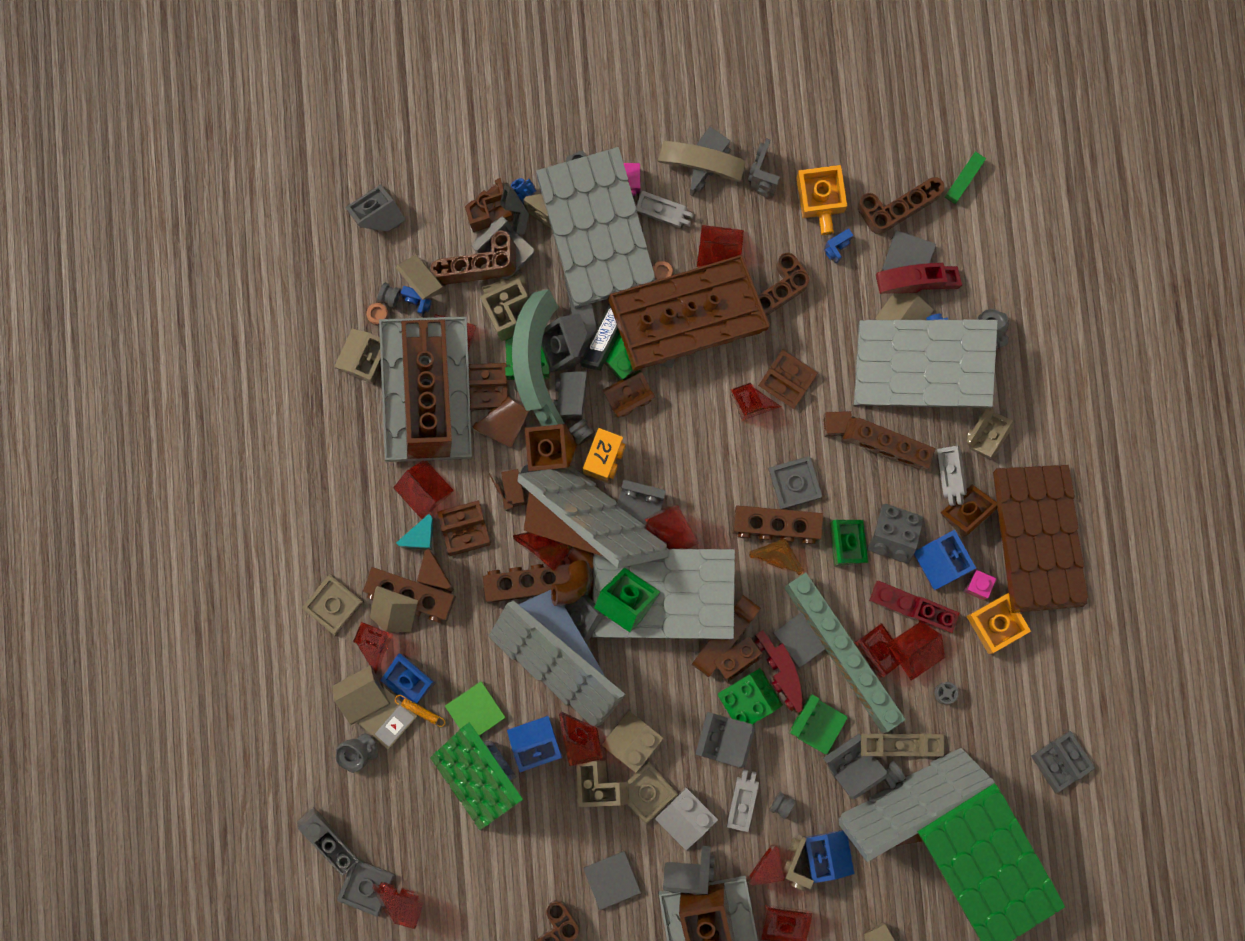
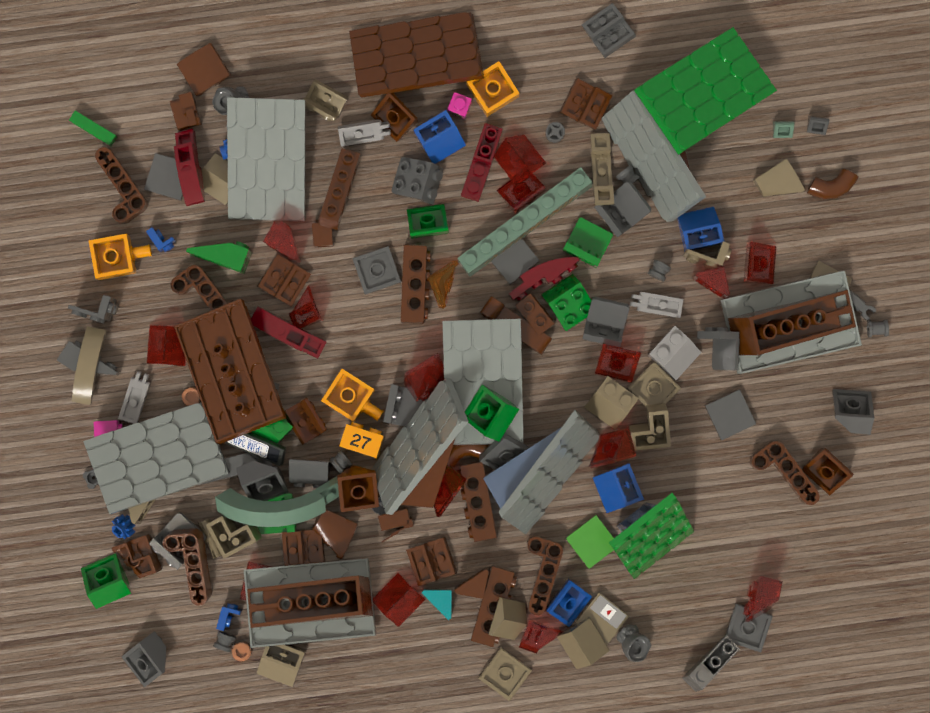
camera: 90 degrees left, 5 degrees up
(420, 277) = (208, 614): dark tan slope -> none
(420, 711) = (594, 590): light orange piece -> none
(438, 652) = (541, 576): none -> reddish brown beam
(463, 169) = (105, 581): none -> green slope
(511, 202) = (136, 535): pearl dark grey slope -> none
(575, 587) = (482, 459): reddish brown cylinder -> none
(653, 446) = (351, 397): none -> light orange brick
(678, 751) = (617, 362): none -> clear red slope
(729, 379) = (287, 332): none -> dark red slope
(817, 321) = (227, 255): none -> green slope
(834, 377) = (283, 241): none -> clear red slope
(978, 730) = (585, 104): none -> reddish brown slope
(981, 279) = (185, 111): none -> reddish brown piece
(1028, 301) = (203, 69): none -> reddish brown slope

